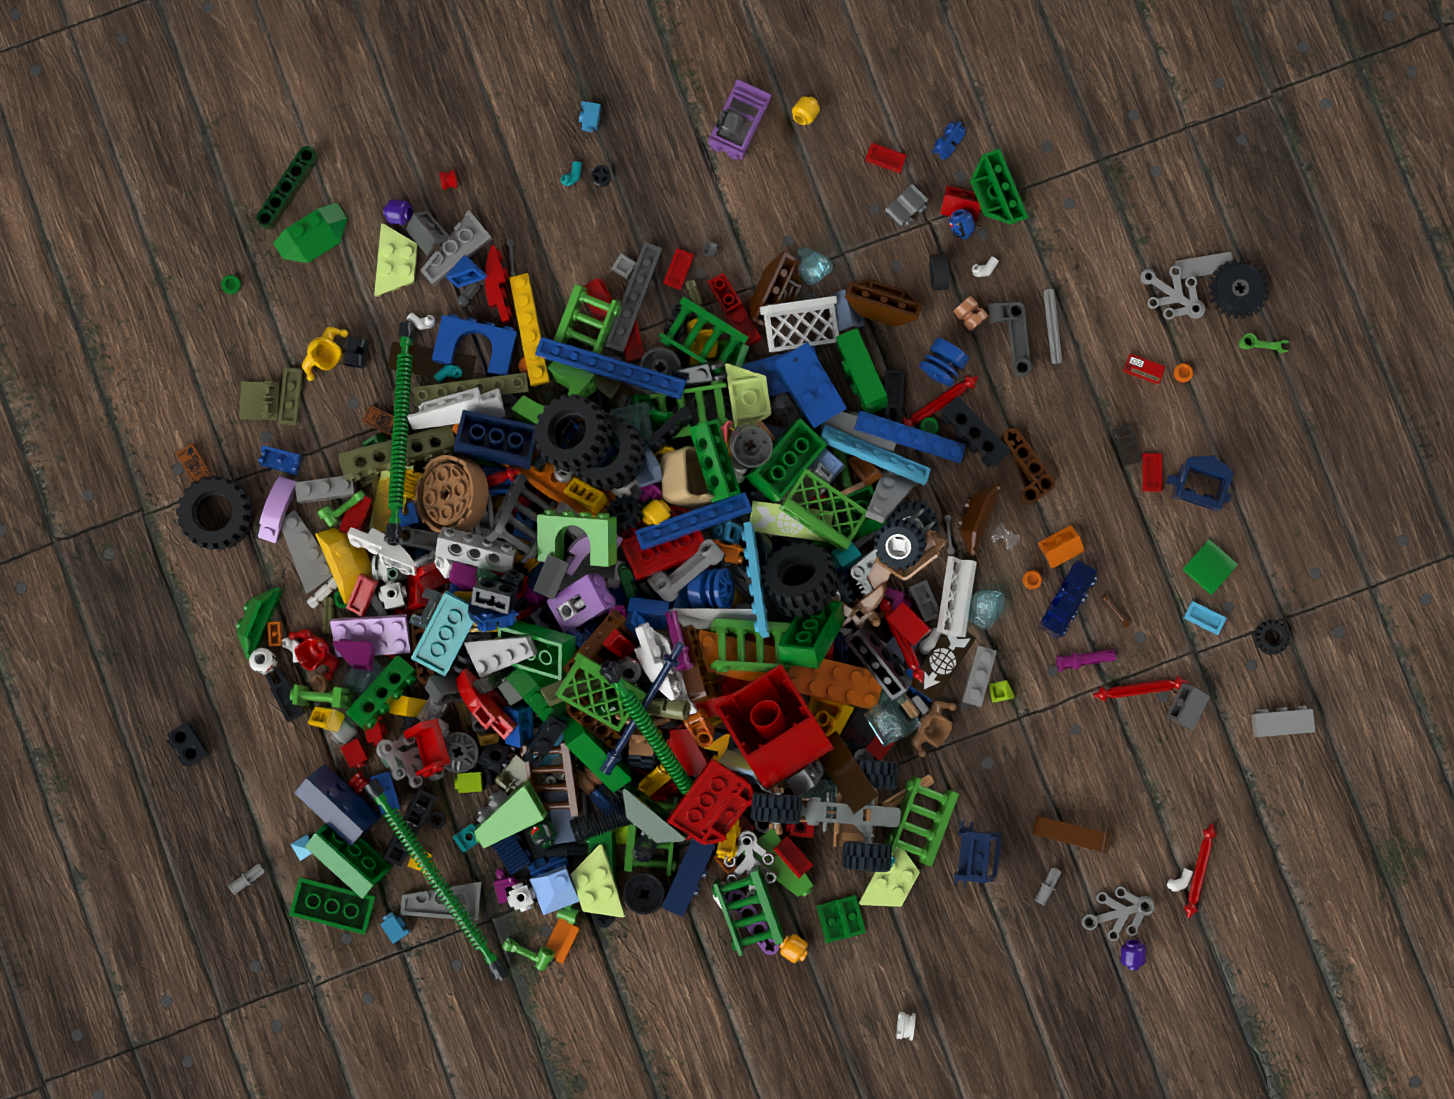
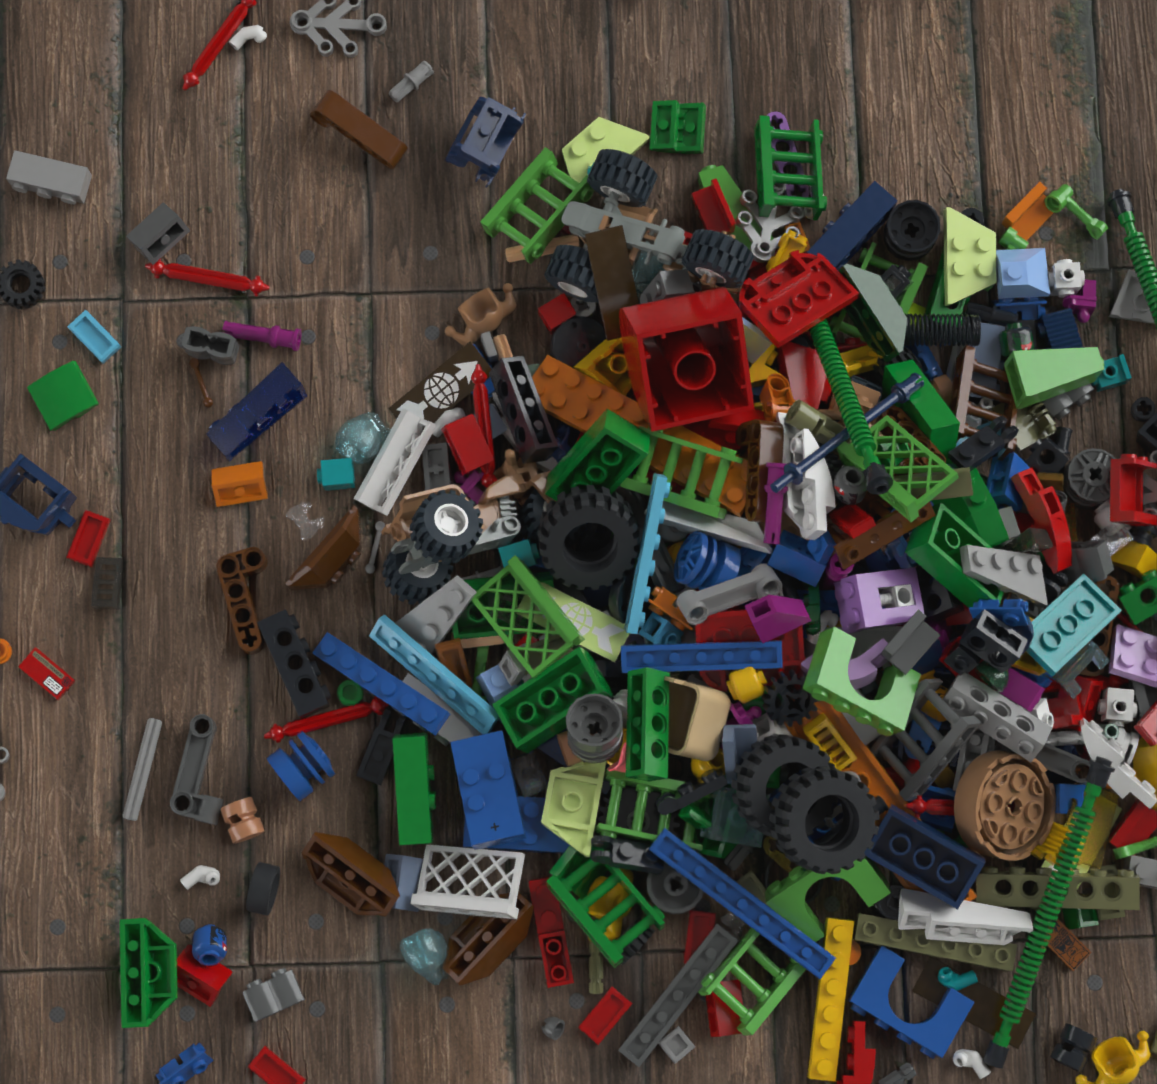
camera: 165 degrees left, 5 degrees down
(469, 782) = (1087, 436): lime brick -> none
(650, 563) = (776, 615): none -> magenta slope
(794, 948) = (746, 108): light orange head -> none
(890, 722) = (534, 333): clear light blue panel -> none
(978, 676) = (403, 356): light grey brick -> none
(995, 575) = (336, 474): none -> teal brick
(1000, 691) = (382, 331): lime slope -> none
(1032, 579) = (291, 454): orange plate -> none
(1113, 636) = (205, 345): none -> dark grey brick

